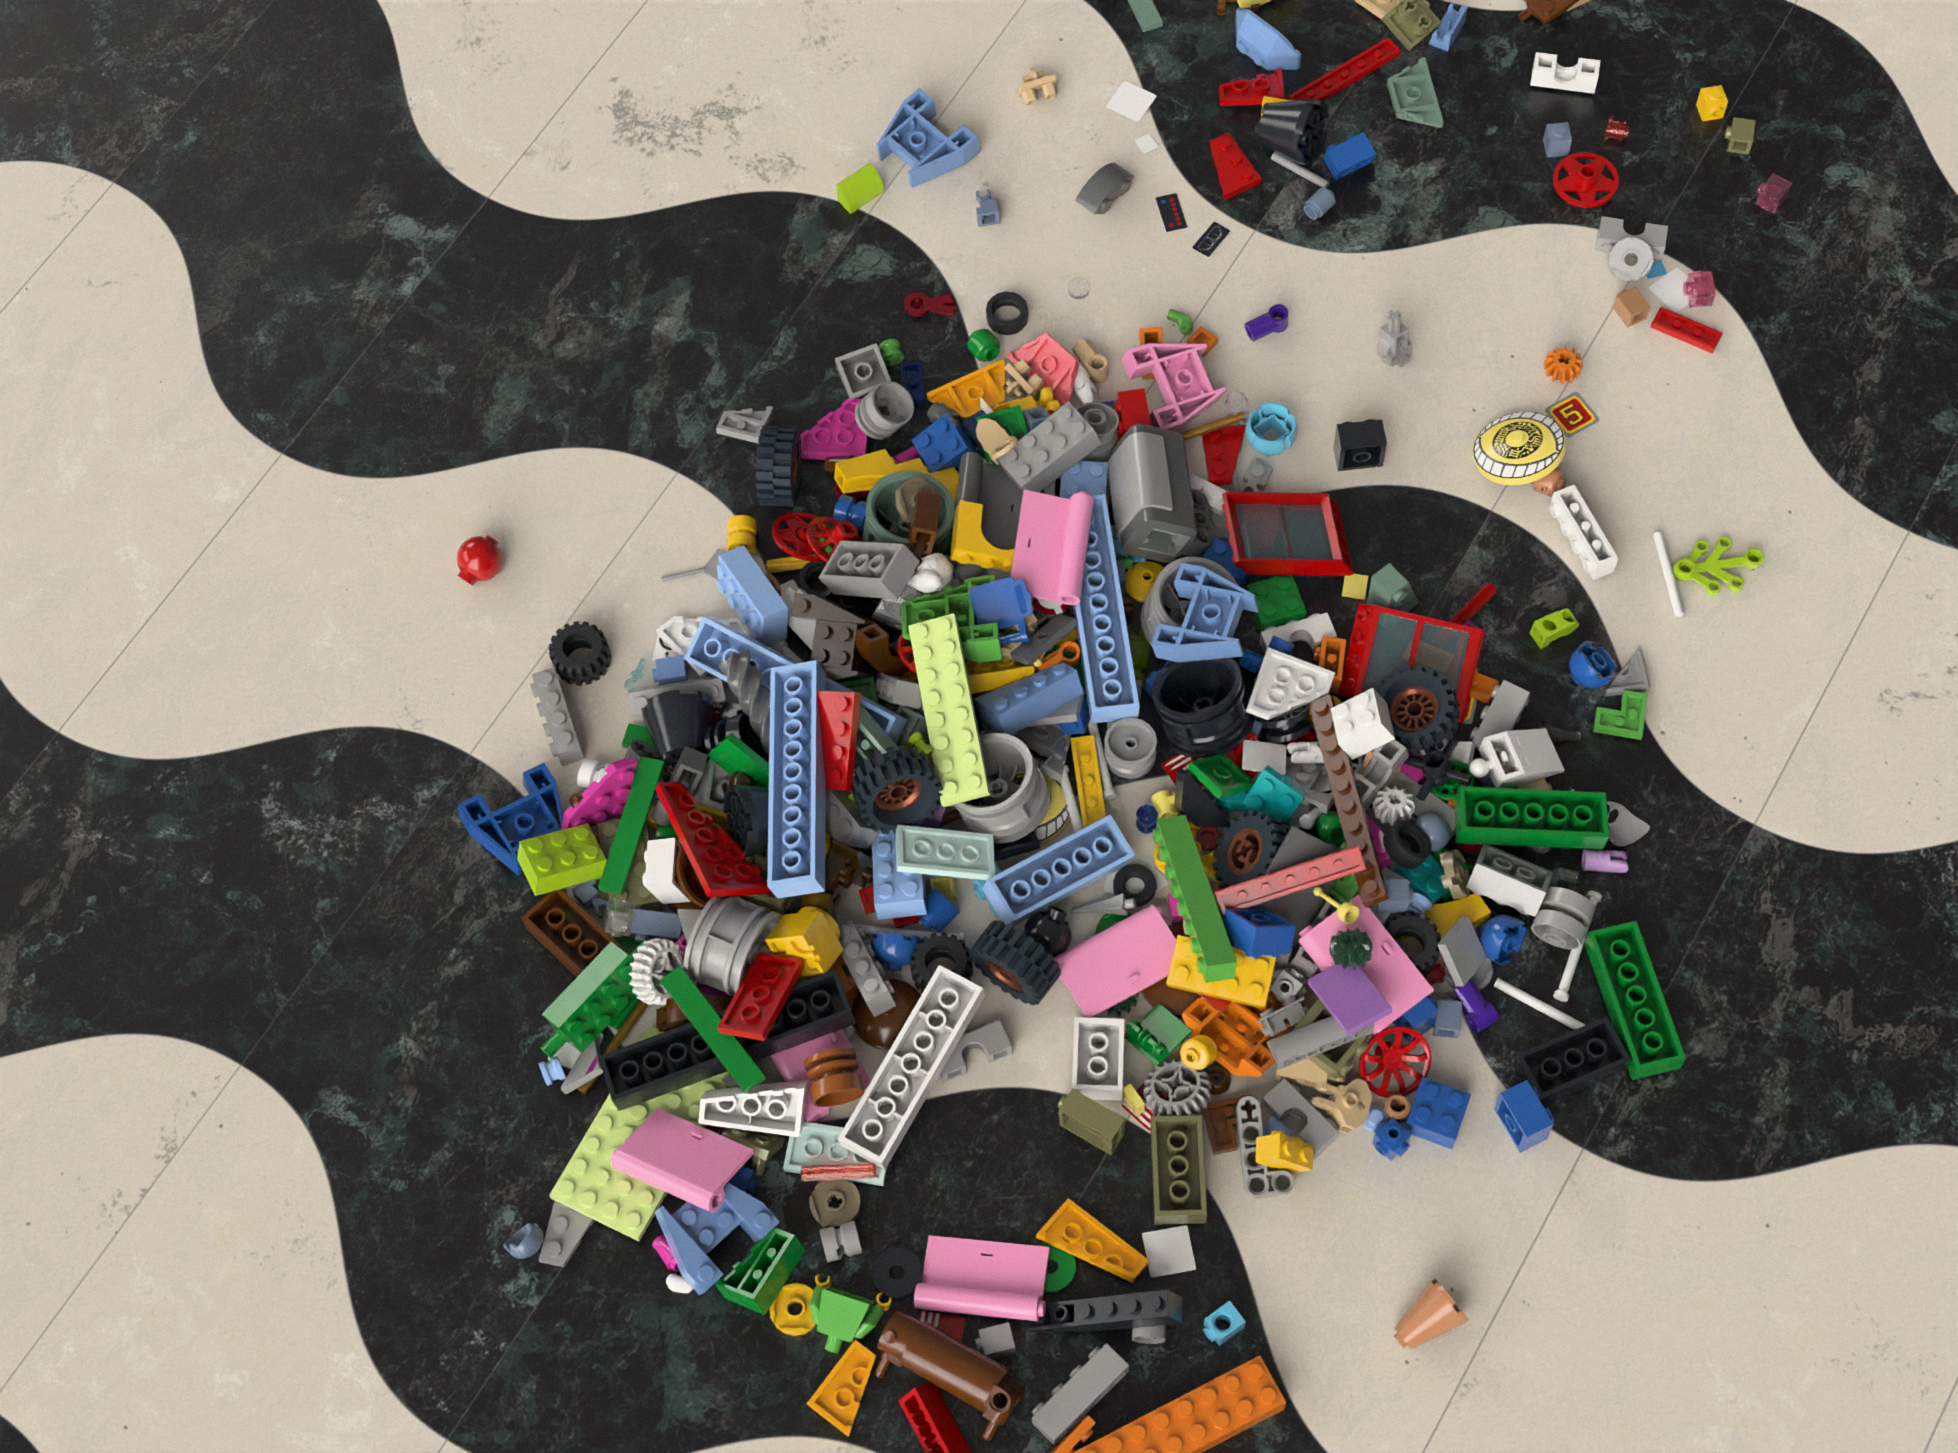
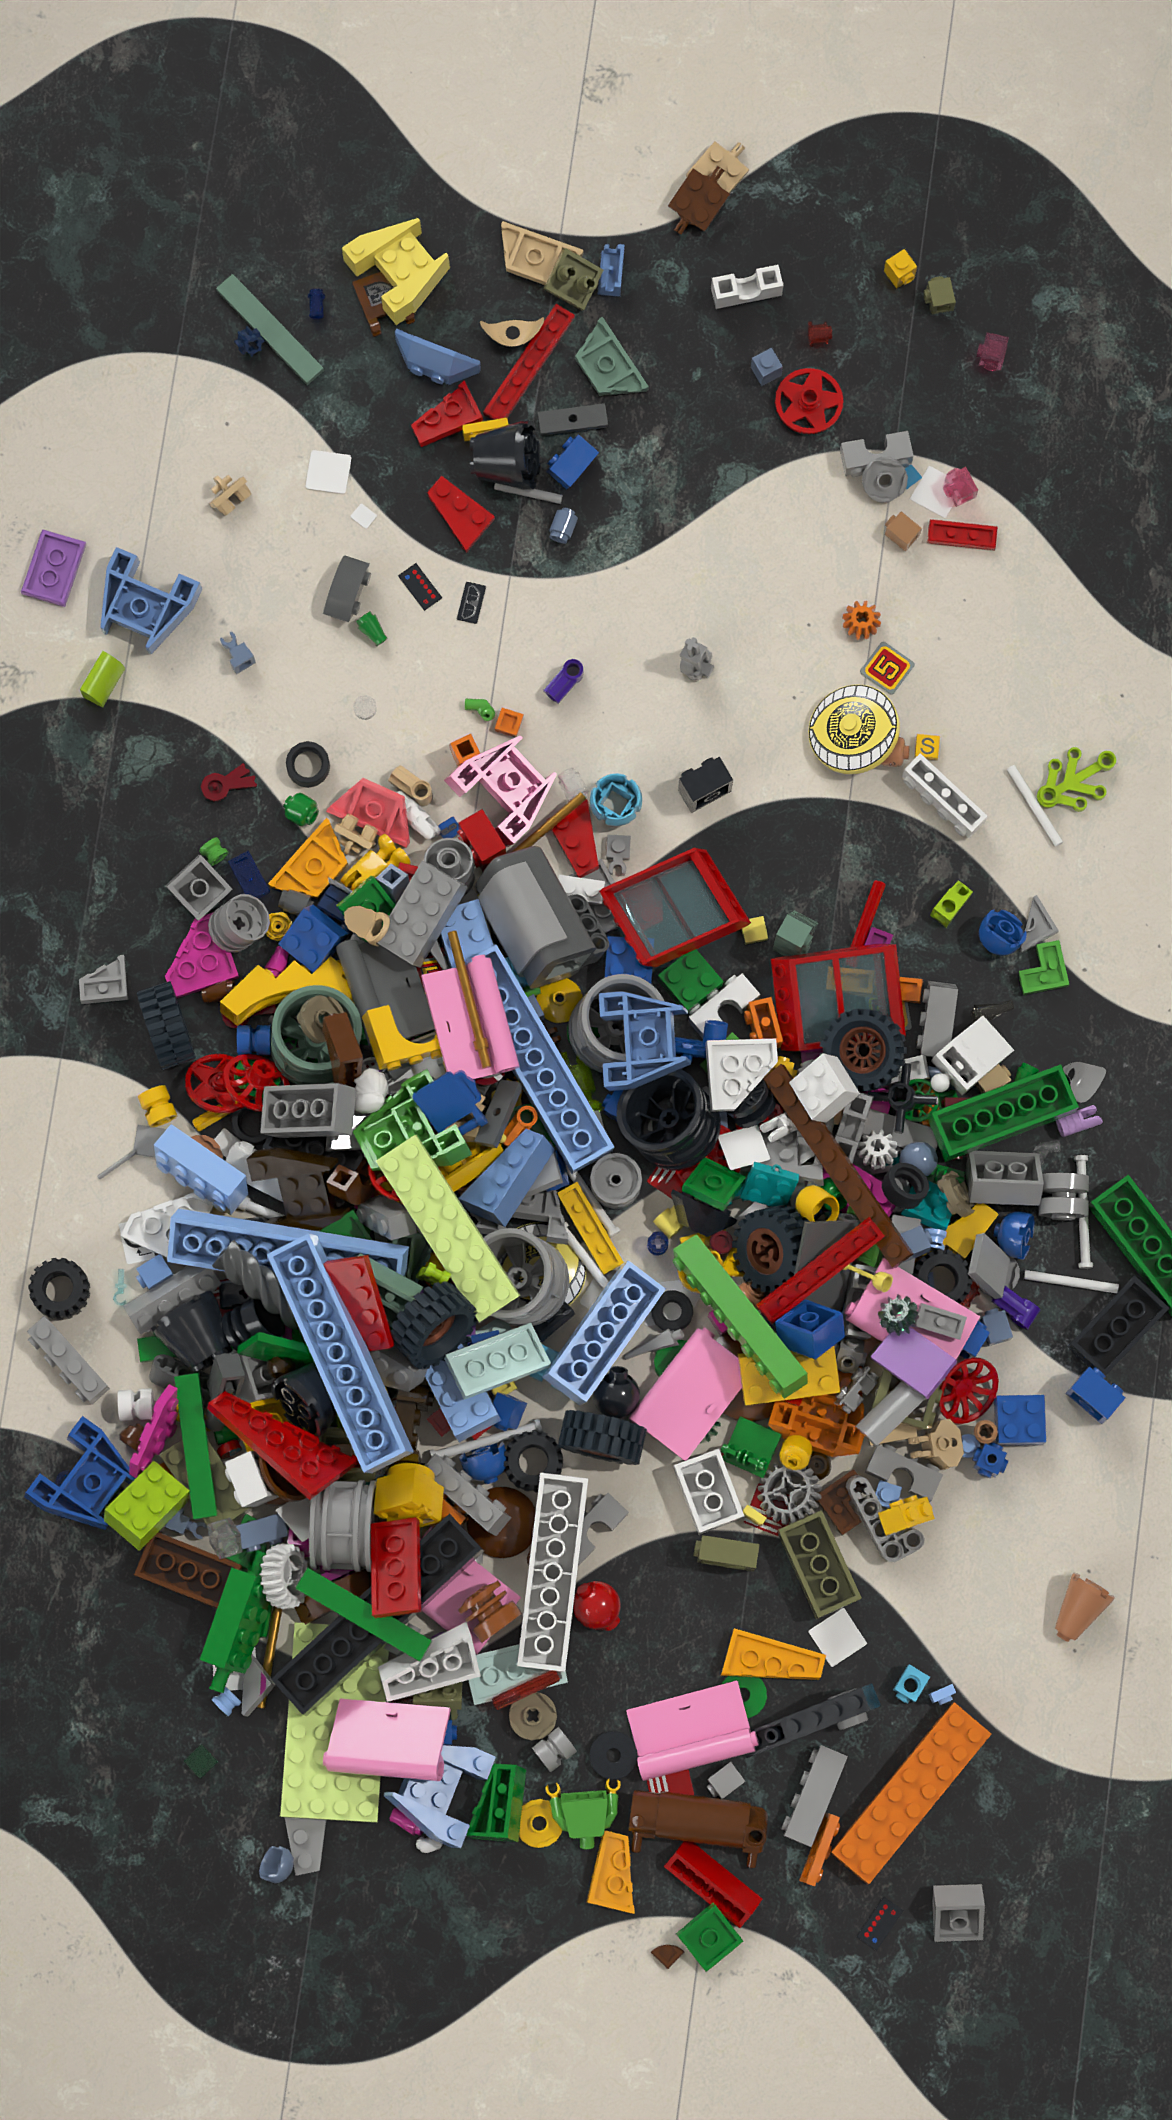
camera: 30 degrees left, 15 degrees up
(502, 1118) = (201, 1761): none -> clear green plate
(860, 96) = (53, 568): none -> medium lavender tile
(916, 425) = (278, 919): none -> yellow plate
(942, 1121) = (597, 1605): none -> red brick
(1052, 565) = (480, 1043): none -> pearl gold bar
(1112, 225) = (371, 628): none -> green cone
(1252, 1347) = (942, 1695): none -> light blue plate
(1318, 822) = (811, 1200): none -> yellow helmet
(1329, 44) = (498, 331): none -> tan piece
(1373, 127) = (558, 421): none -> dark grey tile
(1391, 974) = (940, 1321): none -> light grey plate
(1586, 488) = (927, 746): none -> yellow tile

